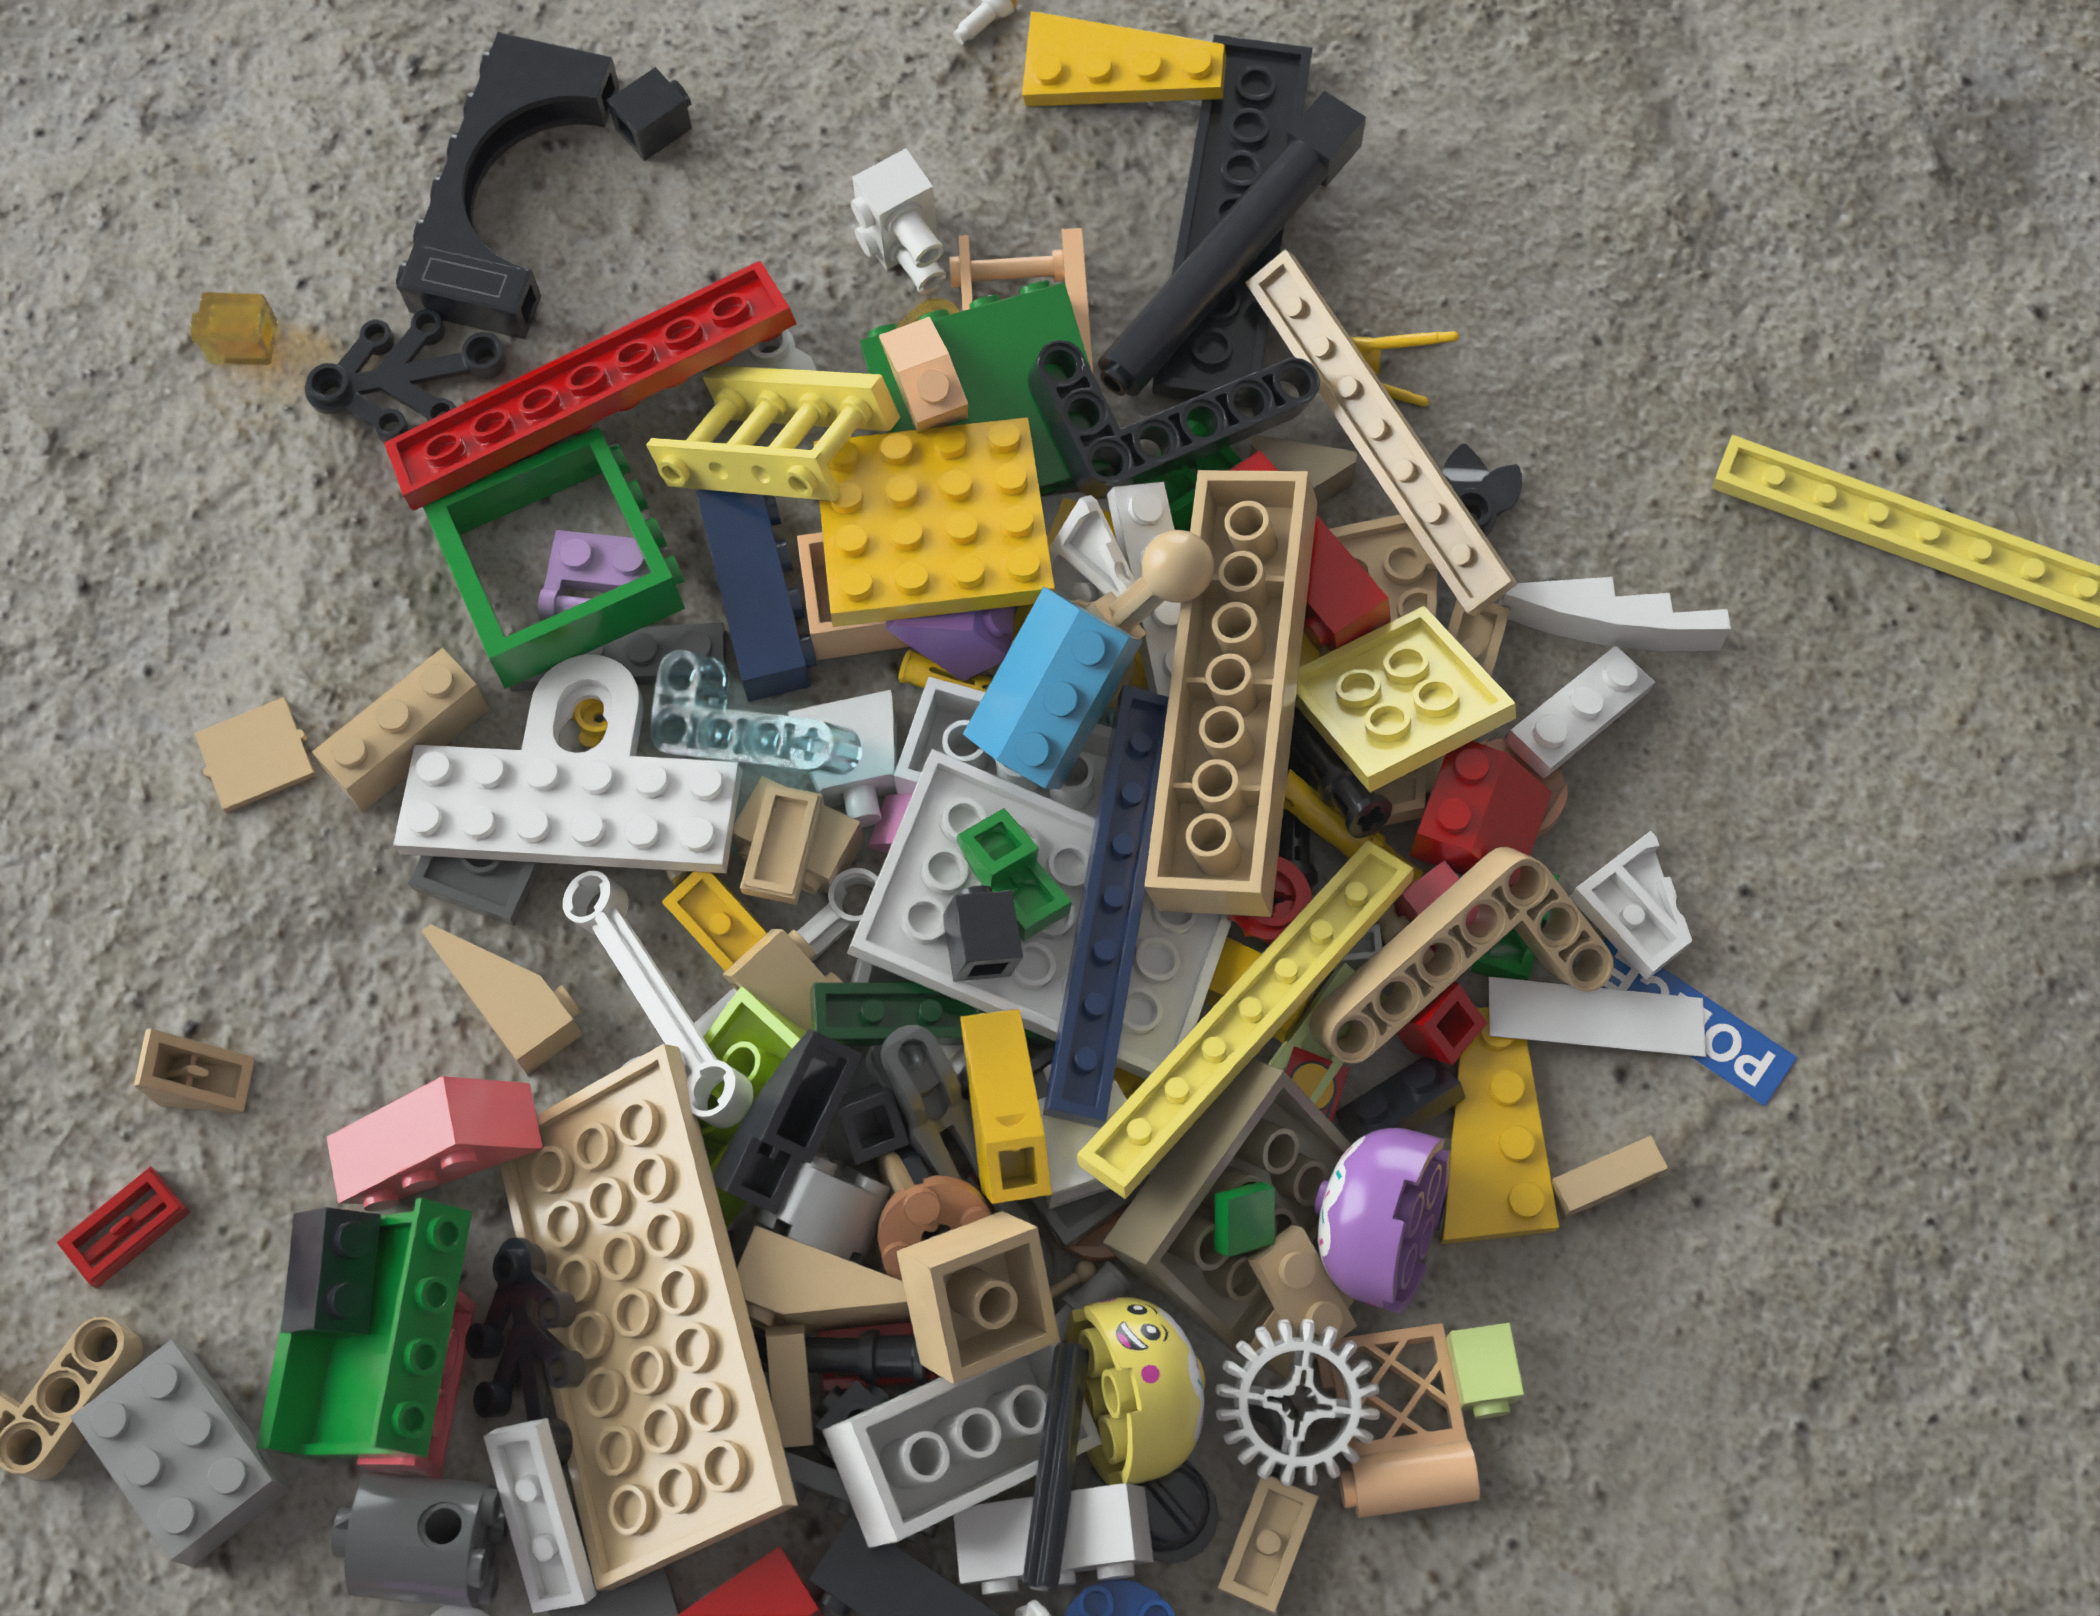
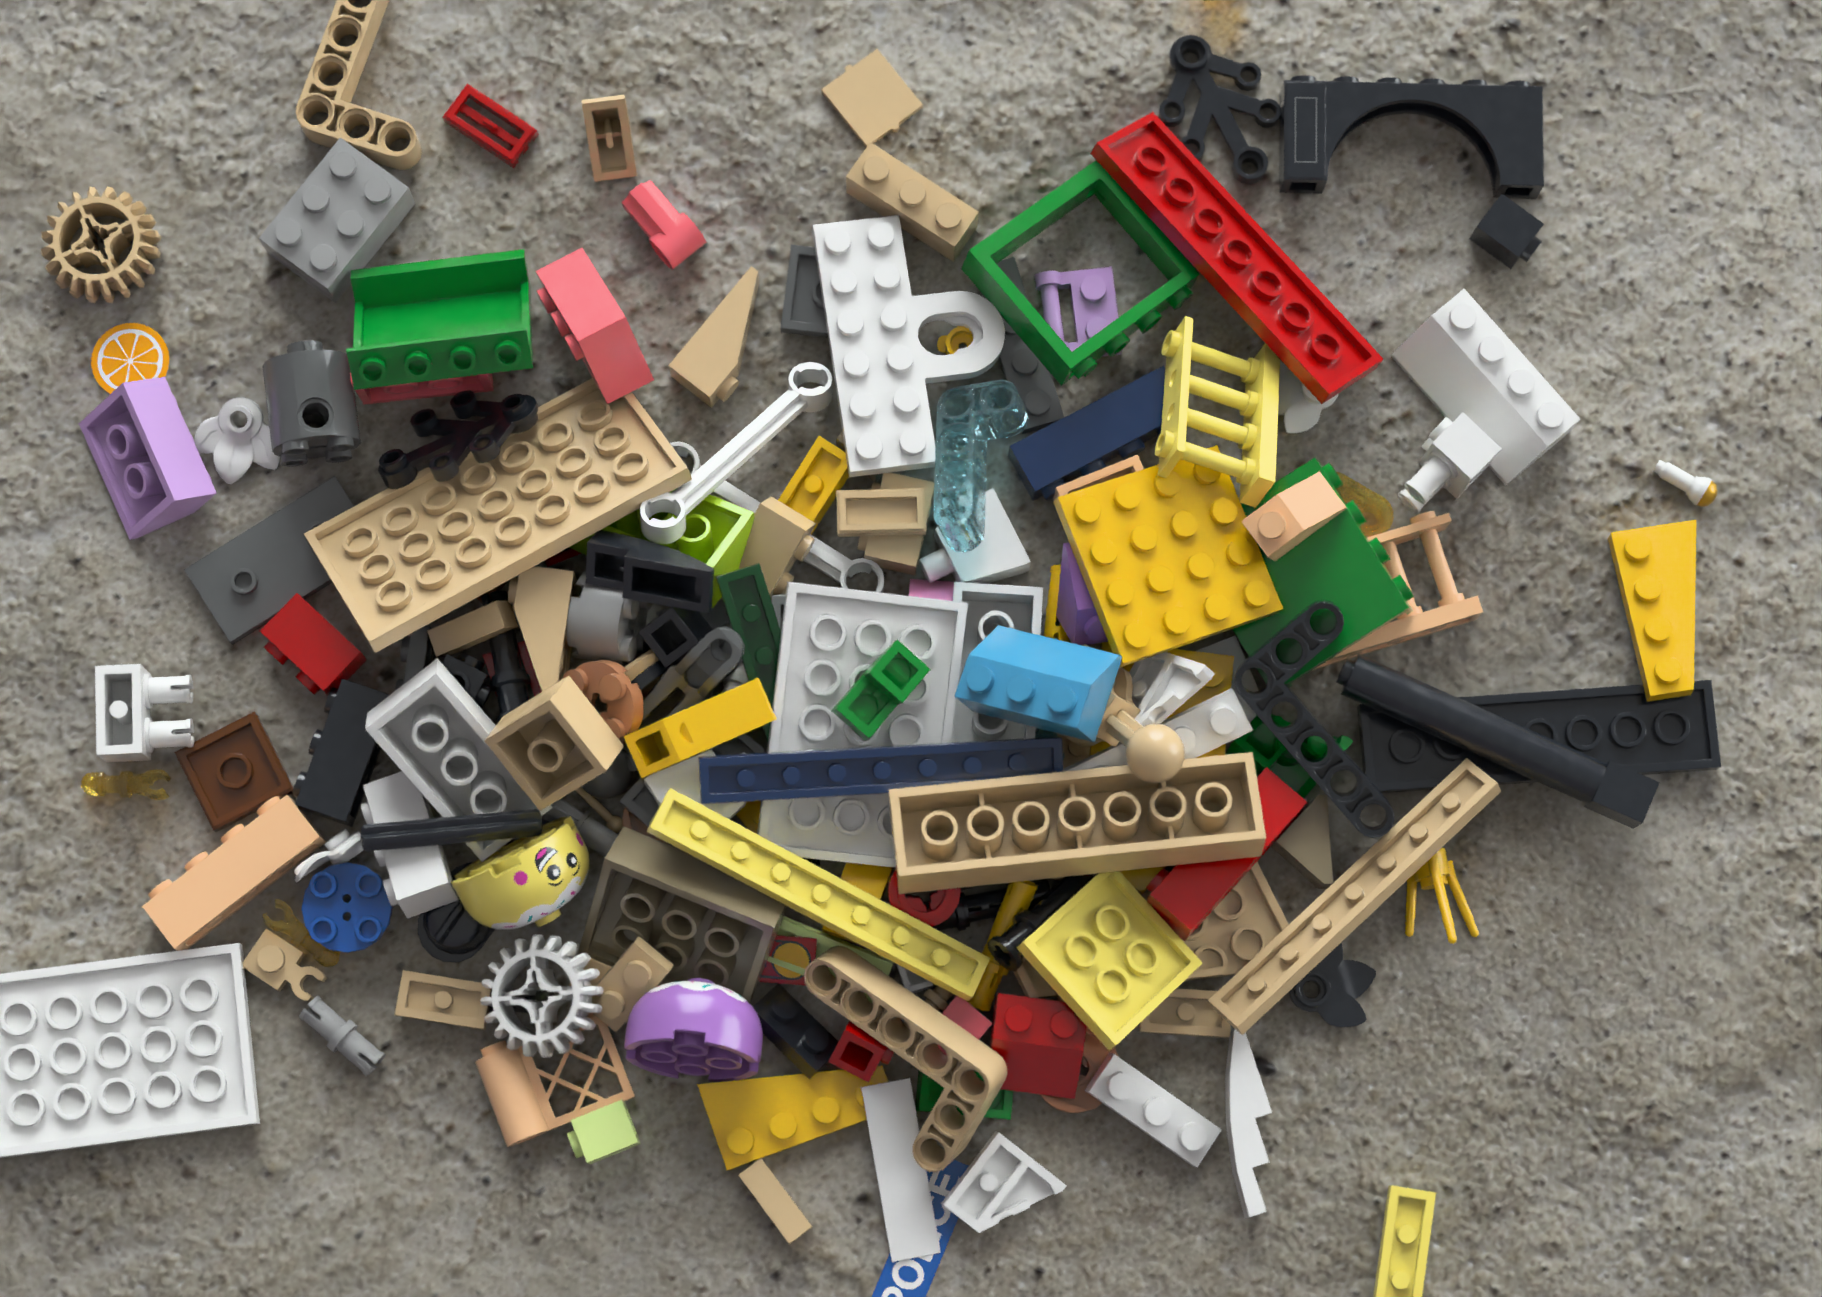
camera: 70 degrees right, 10 degrees up
(331, 1273) = (478, 282): black brick -> none
(345, 1027) = (669, 233): none -> coral piece
(540, 1515) = (343, 479): white plate -> none
(797, 178) = (1475, 369): none -> white slope
(982, 934) = (822, 676): black brick -> none
(1244, 1218) = (661, 925): green tile -> none

